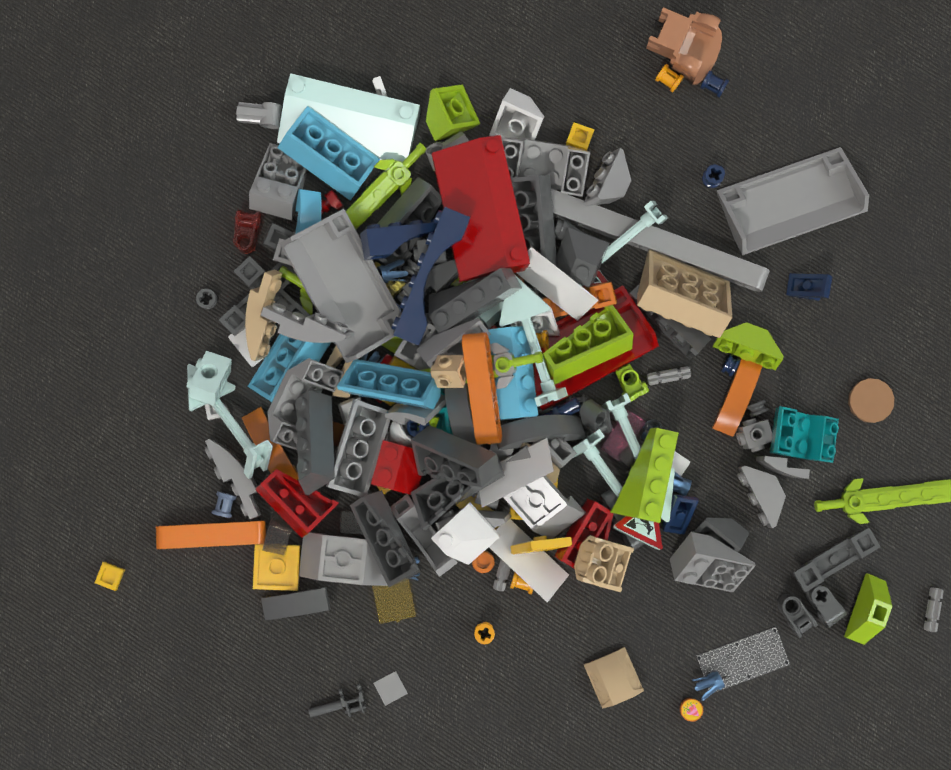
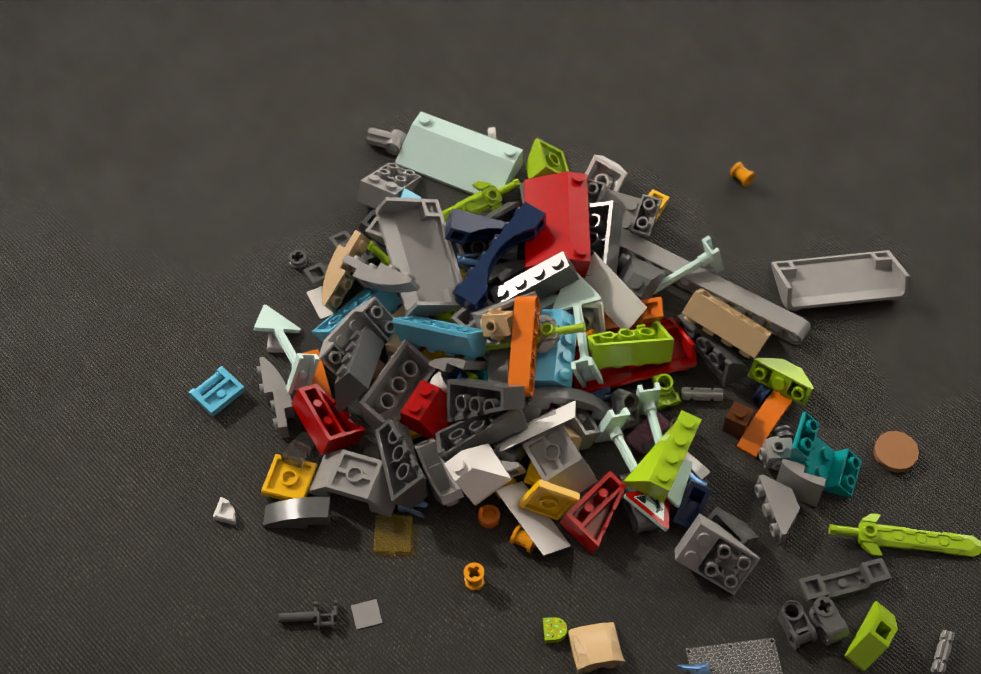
camera: 10 degrees right, 30 degrees down
(109, 576) = (131, 458): yellow tile -> none
(177, 486) = (220, 395): none -> medium azure plate
(209, 389) = (280, 311): light aqua brick -> none
(210, 534) = (236, 438): orange beam -> none
(223, 614) = (225, 512): none -> white tile
(224, 504) = (258, 417): sand blue bush -> none
(246, 226) = (349, 216): clear red piece -> none
(328, 153) = (435, 170): medium azure slope -> none
(502, 575) = (505, 530): light grey axle -> none
(571, 667) = (554, 630): none -> lime tile
(602, 563) = (607, 522): tan slope -> none
(610, 180) = (674, 232): light grey slope -> none
(688, 44) = (765, 158): nougat piece -> none
(710, 403) = (738, 419): none -> reddish brown brick
(714, 83) = (775, 183): dark blue bush -> none
(714, 169) = (765, 251): dark blue bush -> none
(809, 286) = (846, 345): dark blue slope -> none

